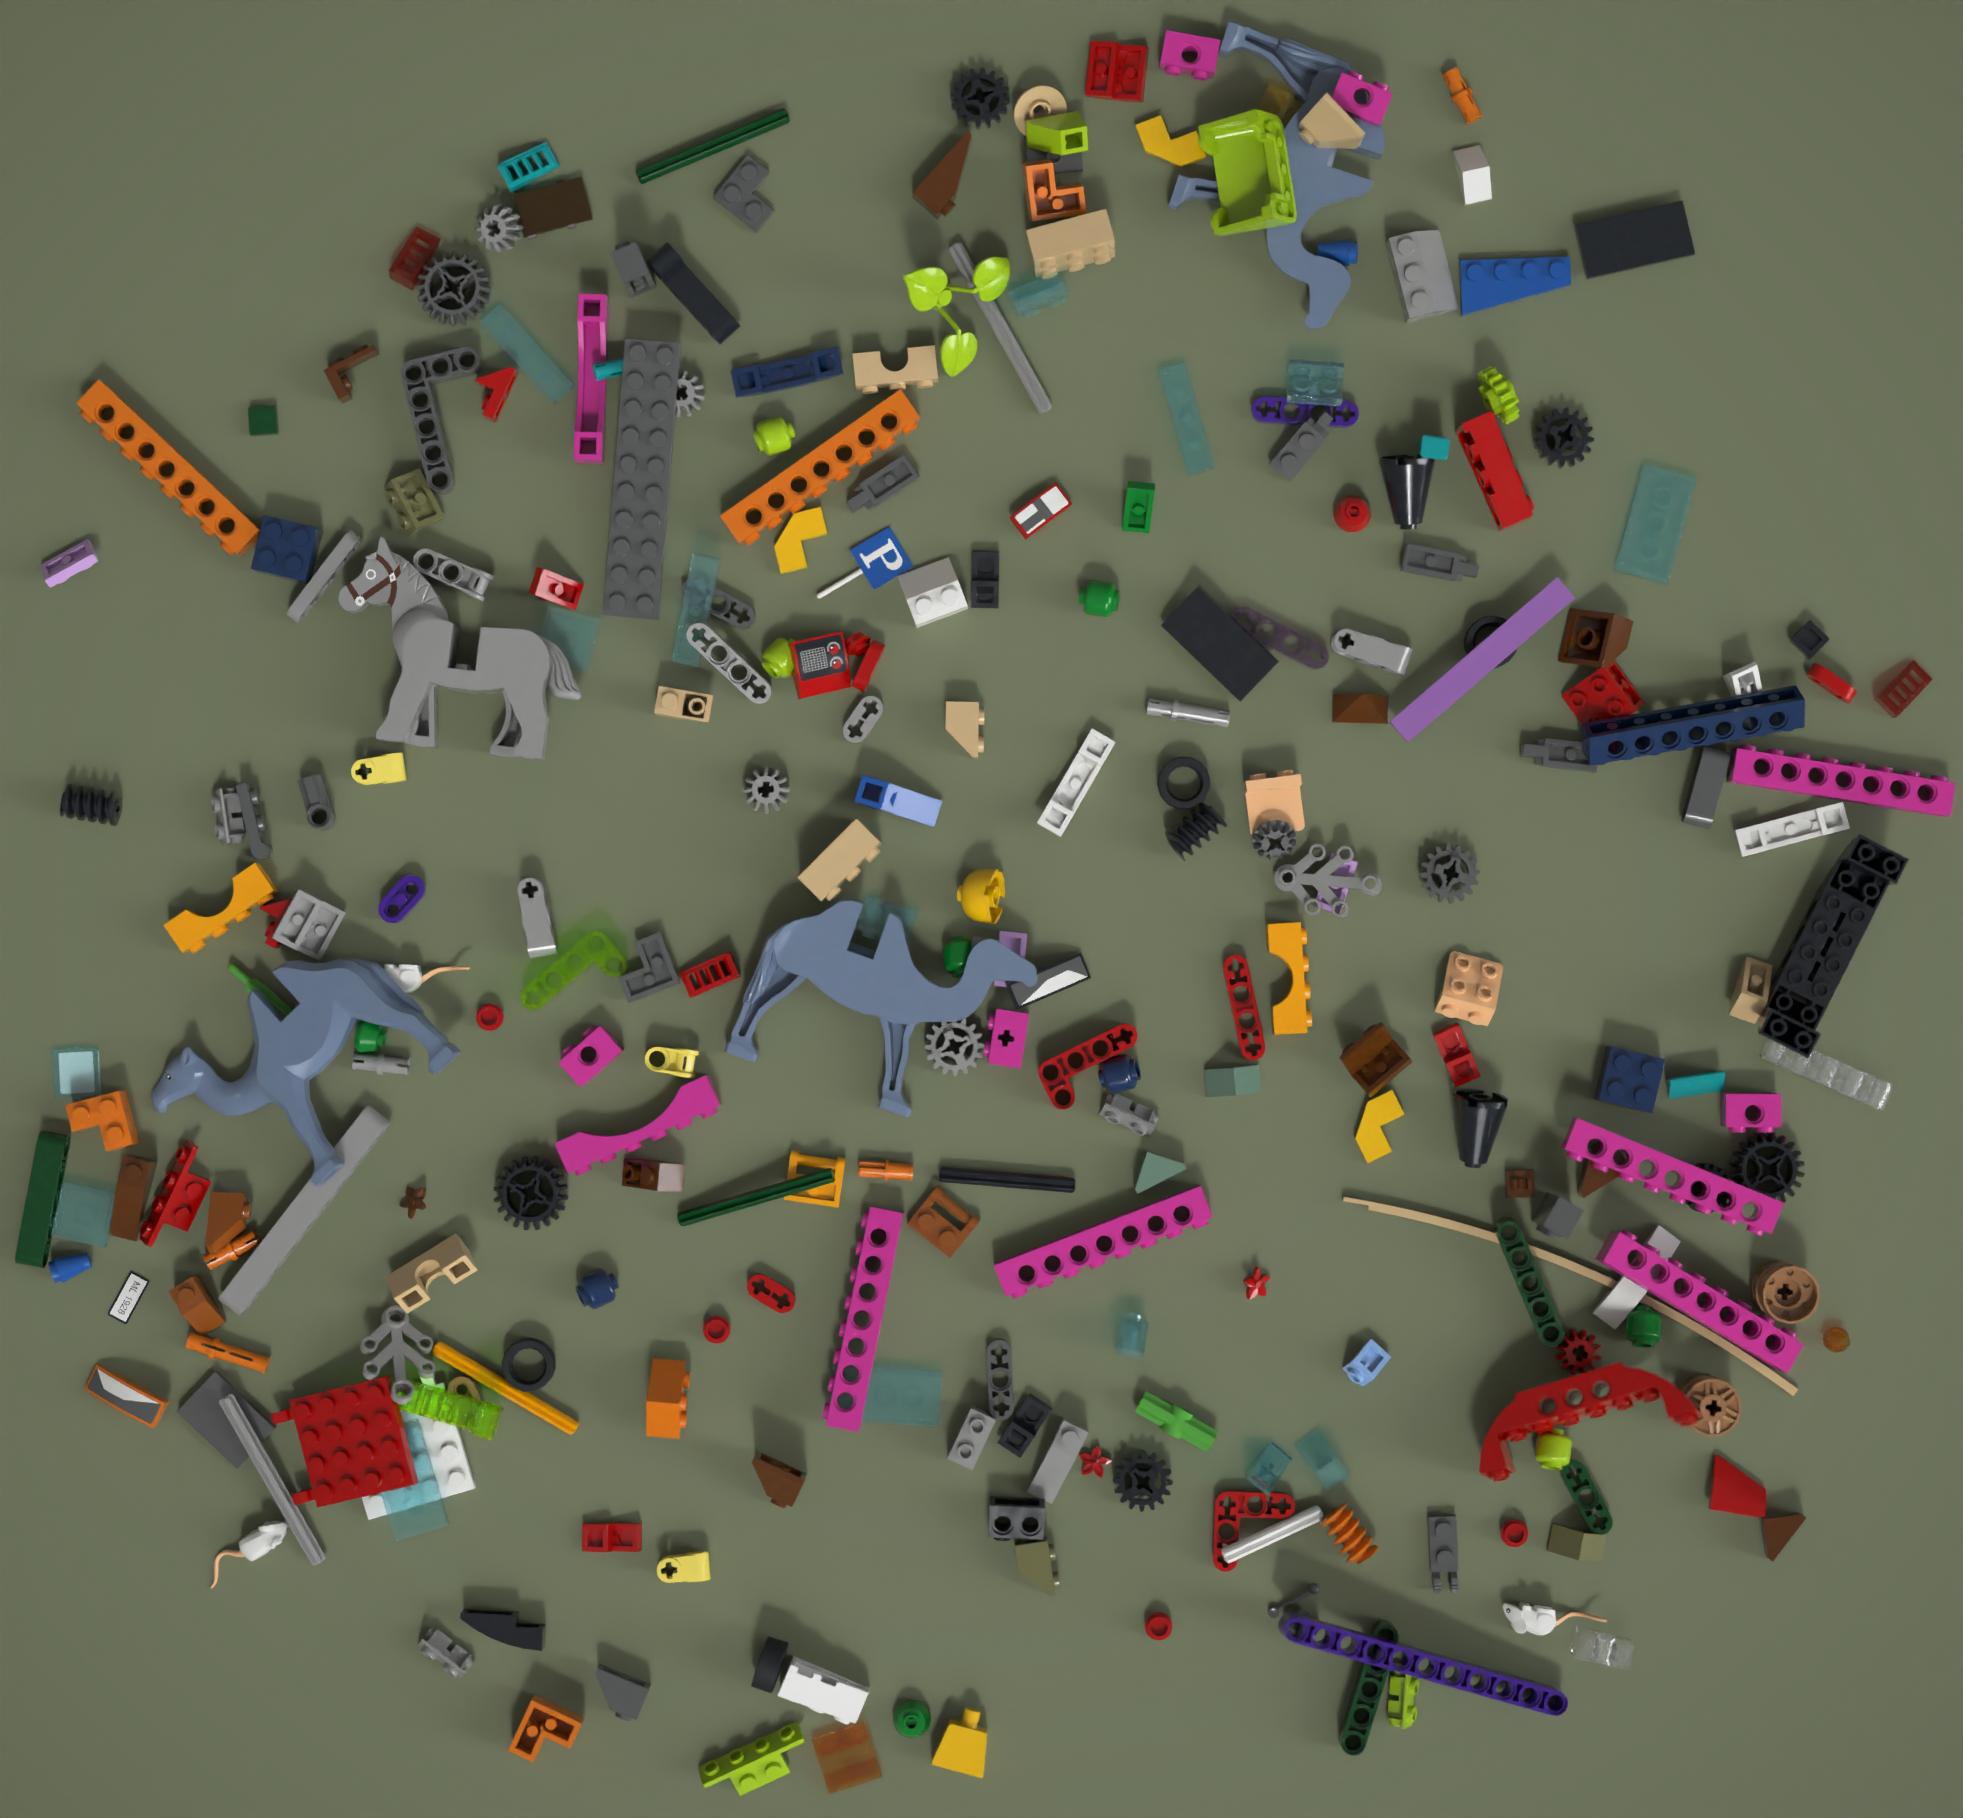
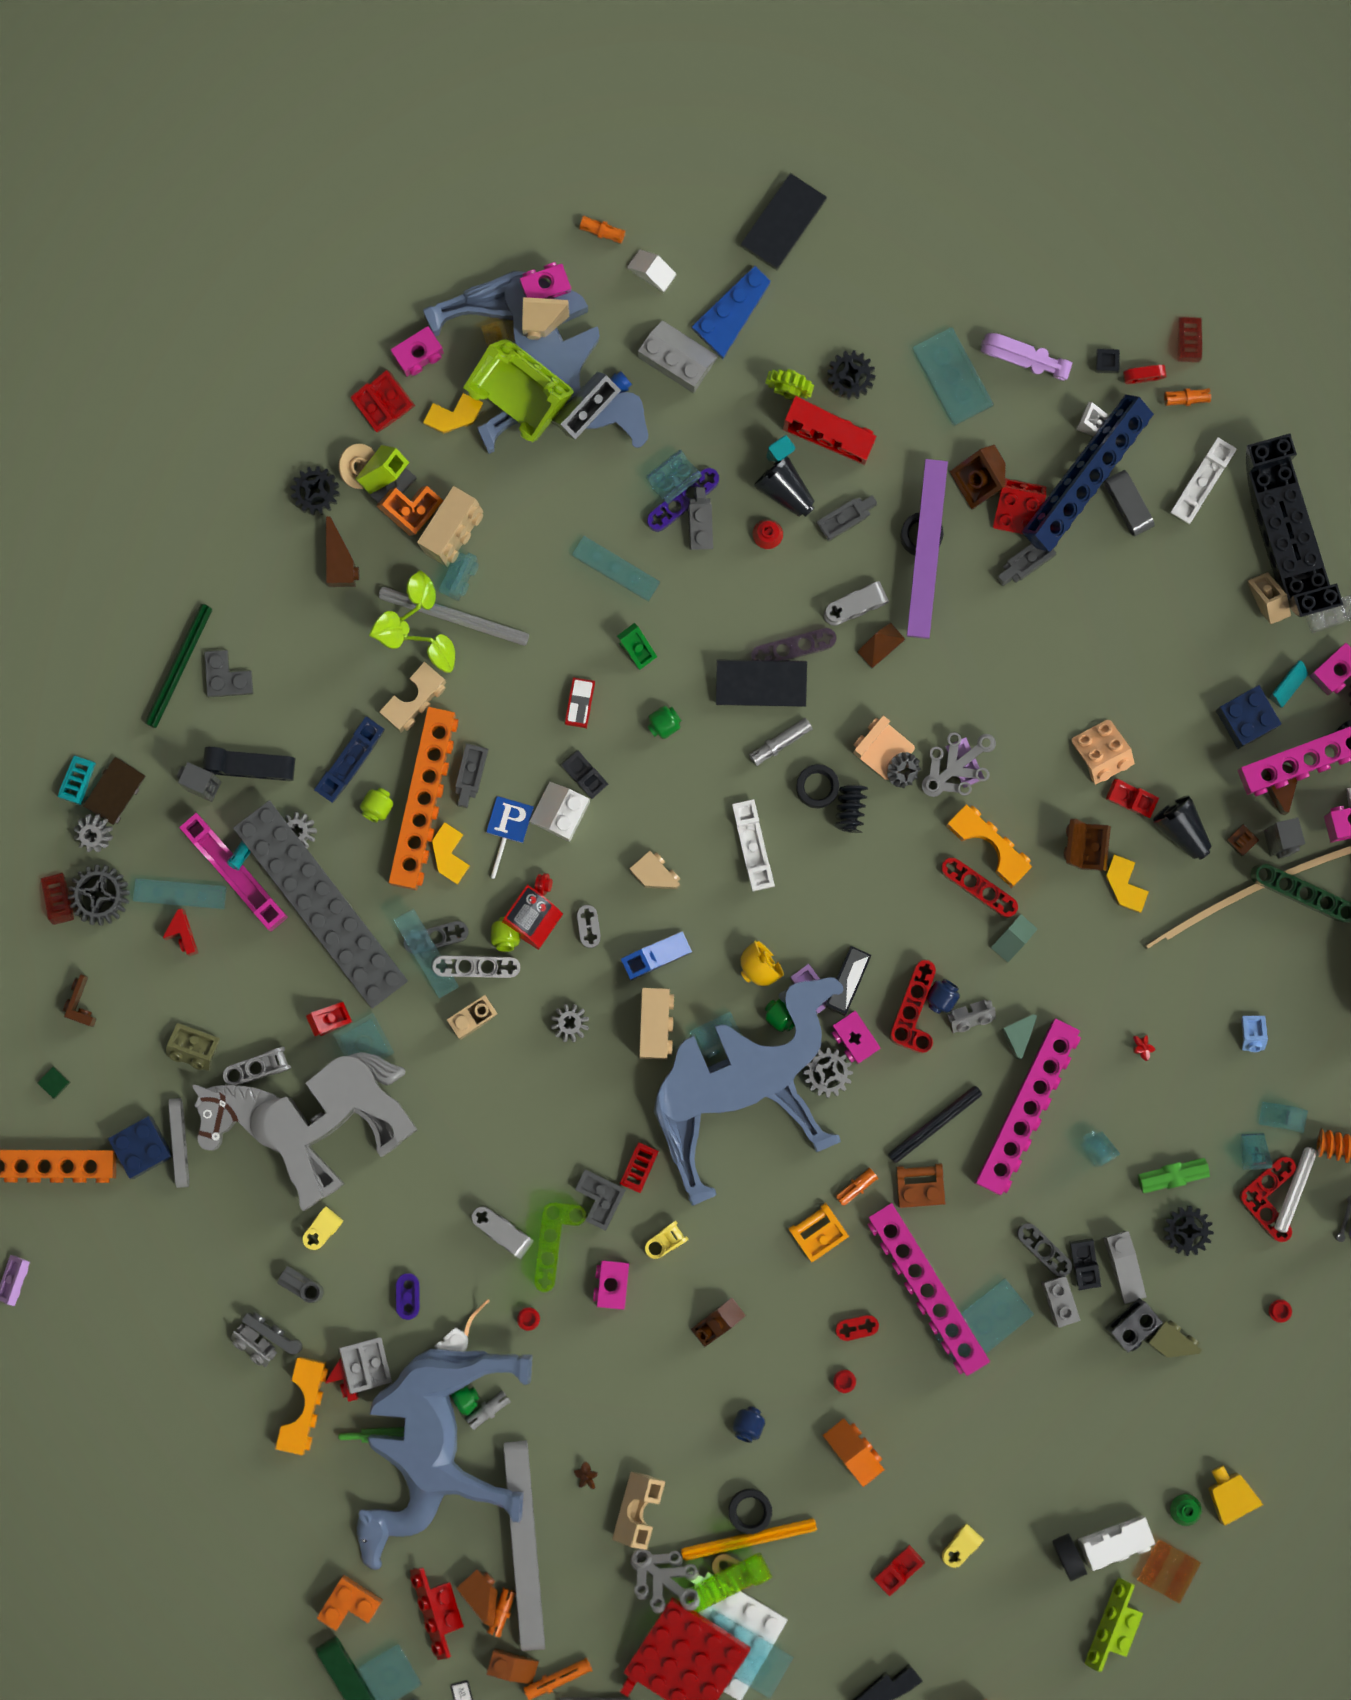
camera: 45 degrees left, 5 degrees down
(76, 1072) = (303, 1592): clear light blue piece -> none
(91, 806) = (162, 1417): black piece -> none
(131, 1196) = (409, 1637): reddish brown slope -> none
(430, 411) = (152, 983): dark grey beam -> none
(520, 1214) = (638, 1408): black gear -> none
(585, 1148) = (662, 1344): dark pink arch -> none
(622, 1692) = (996, 1660): dark grey slope -> none
(756, 1197) = (793, 1277): dark green axle -> none
(778, 1479) = (970, 1437): reddish brown slope -> none
(868, 665) = (562, 891): red beam -> none
(1094, 1462) = (1148, 1247): red plant -> none
(1294, 245) = (586, 405): none -> dark grey brick
(1437, 869) = (1031, 706): dark grey gear -> none
(1737, 566) = (1024, 355): none -> lavender piece
(1850, 739) = (1187, 397): none -> orange pin
(1937, 804) = (1273, 388): dark pink brick -> none

